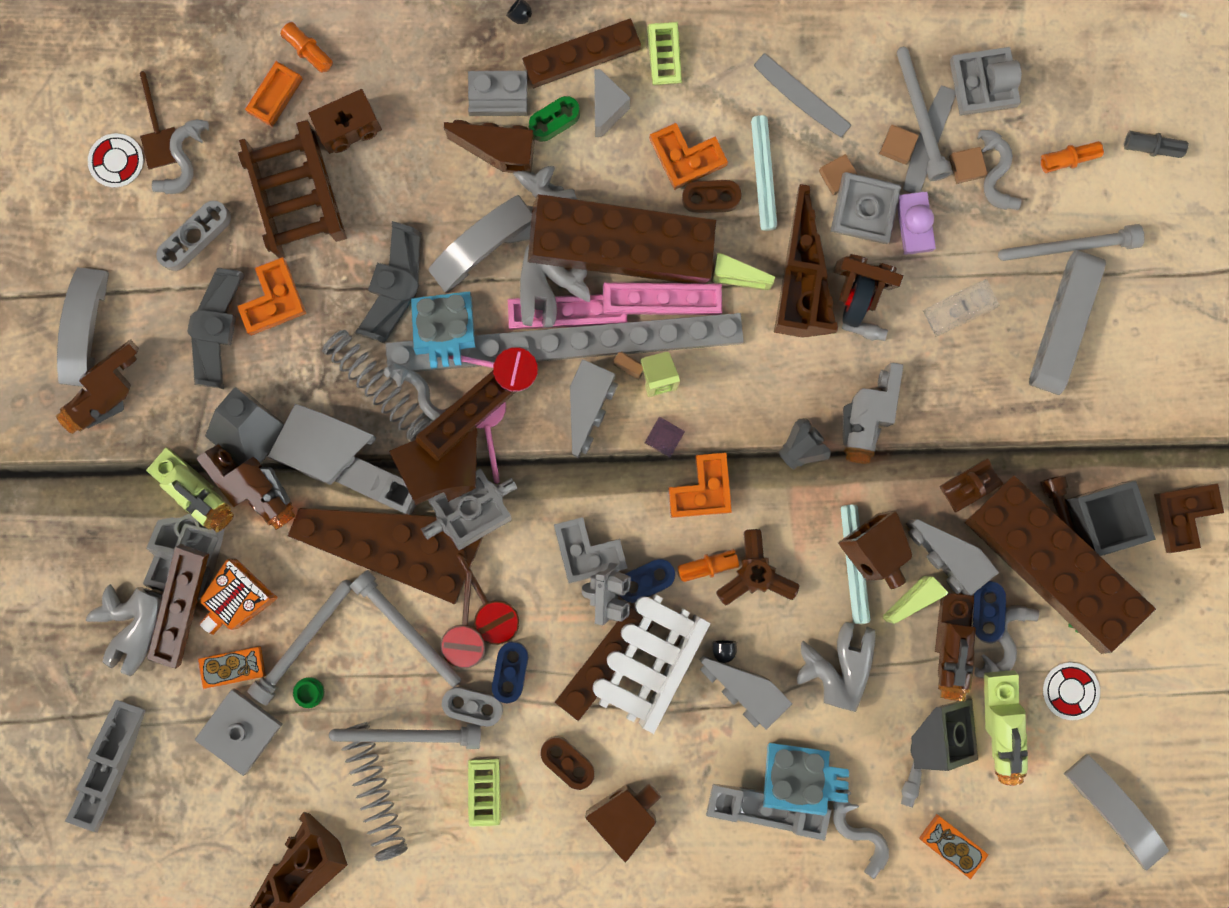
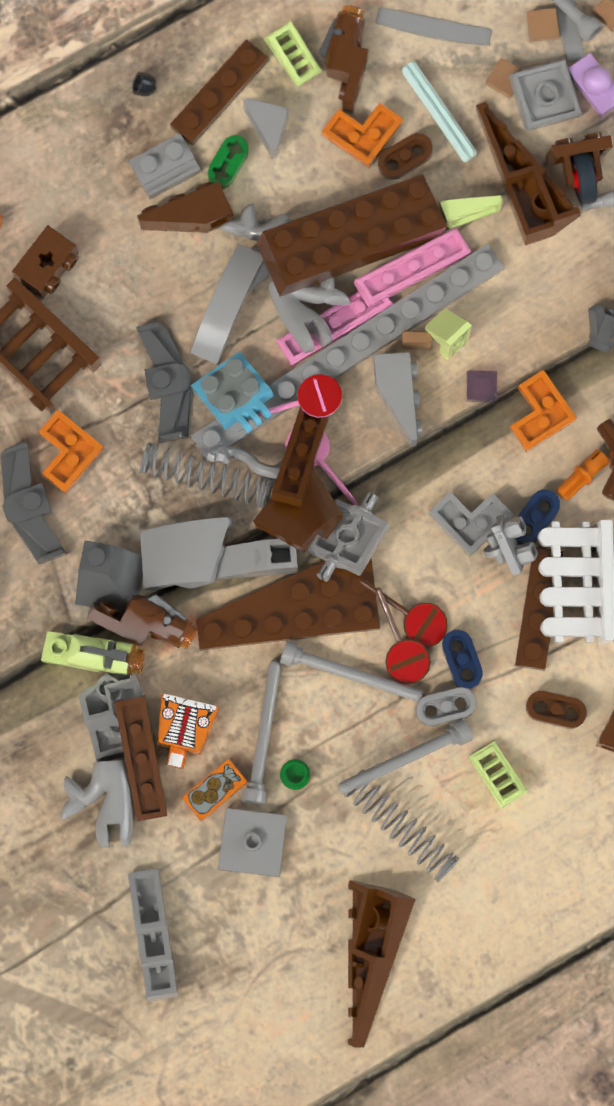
camera: 25 degrees left, 5 degrees down
(708, 78) = (344, 54): none -> reddish brown plate

